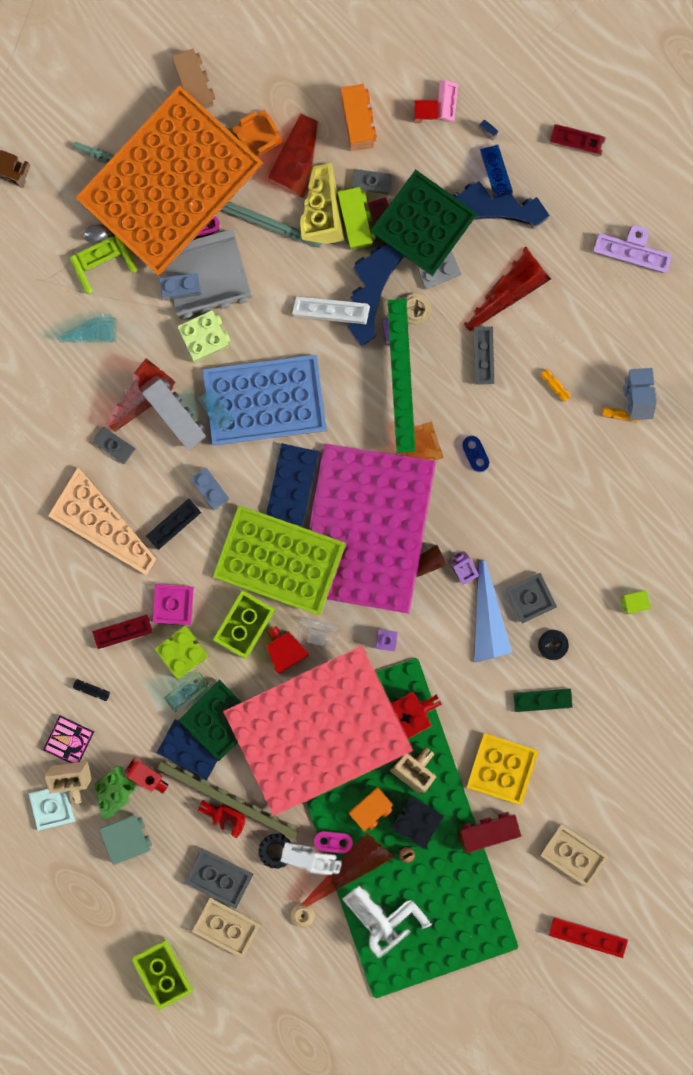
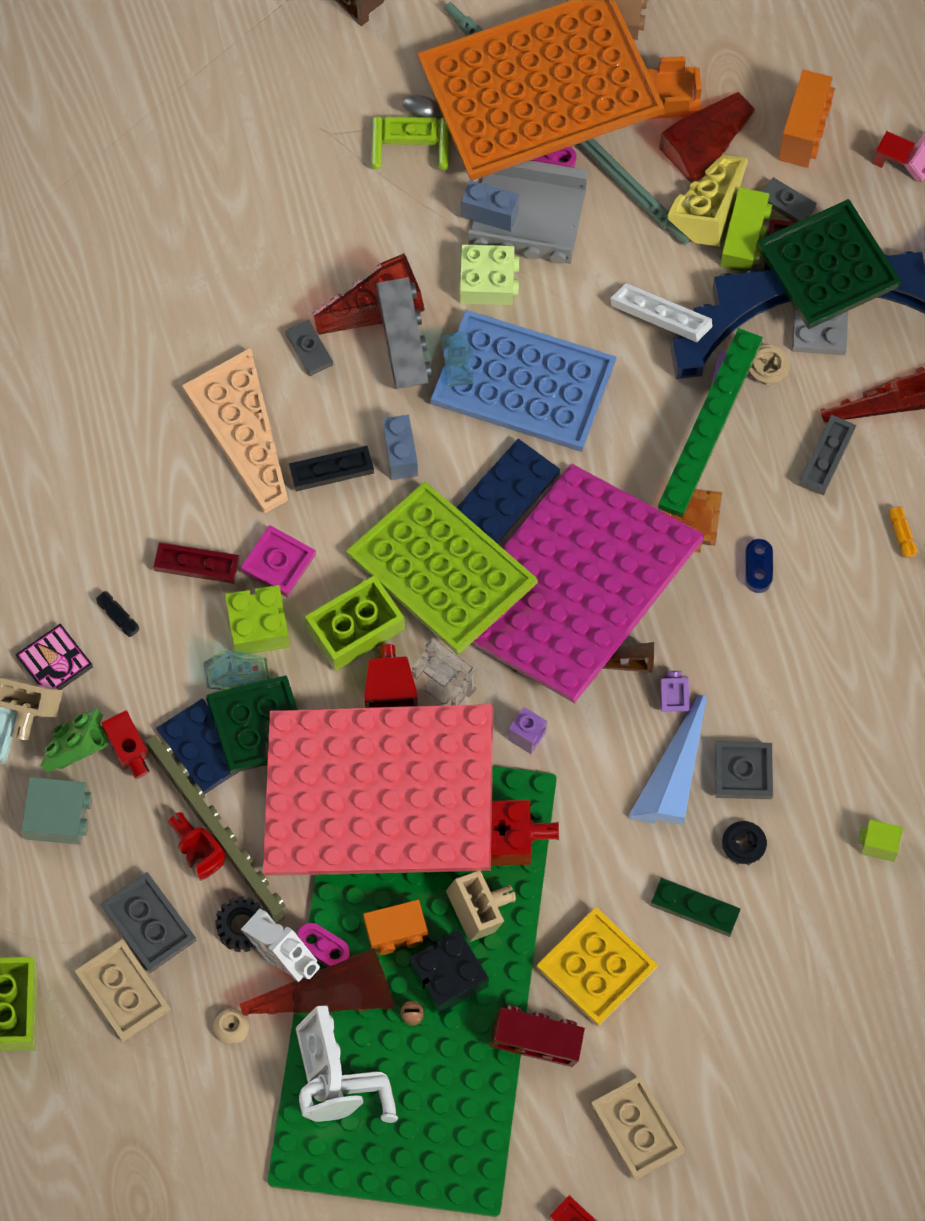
camera: 25 degrees right, 20 degrees down
(95, 330) = (353, 207): clear light blue slope -> none

